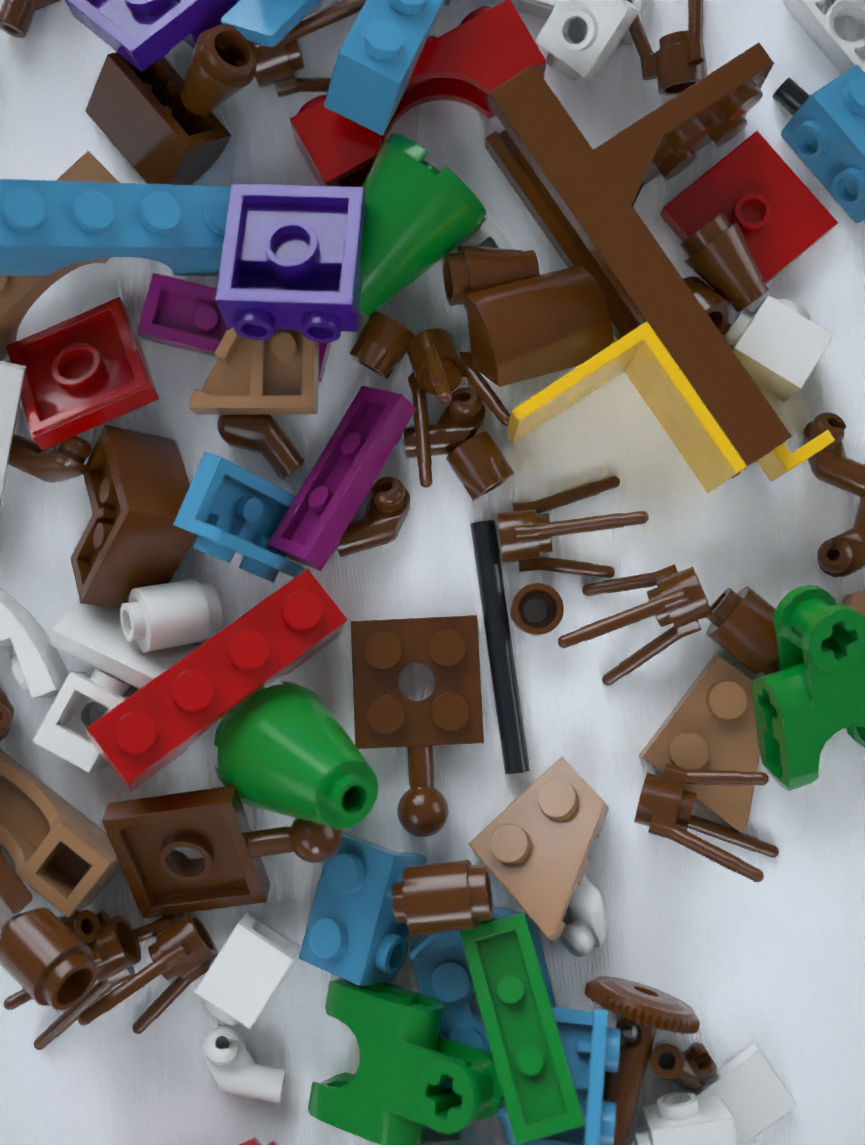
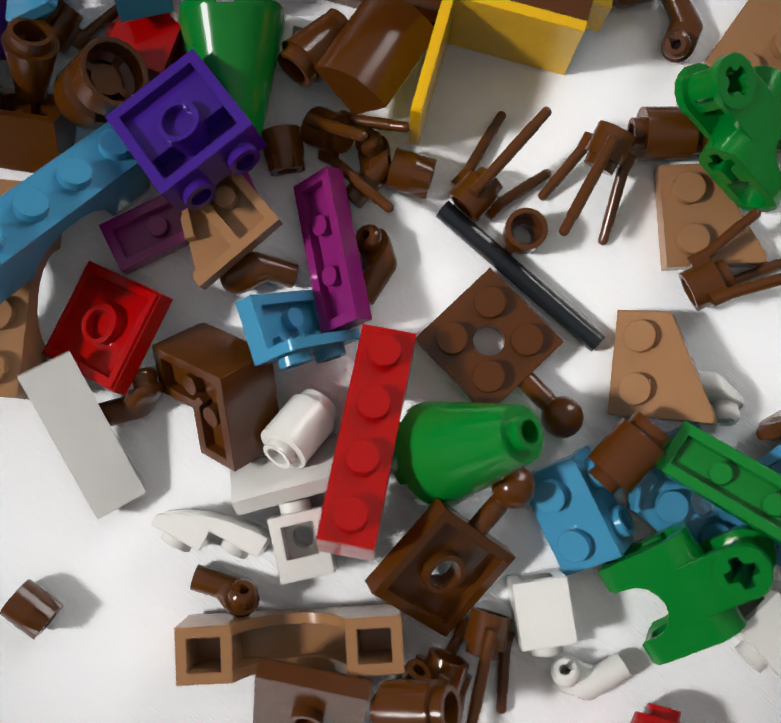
camera: 45 degrees left, 0 degrees up
(260, 144) = (98, 81): none -> reddish brown wheel

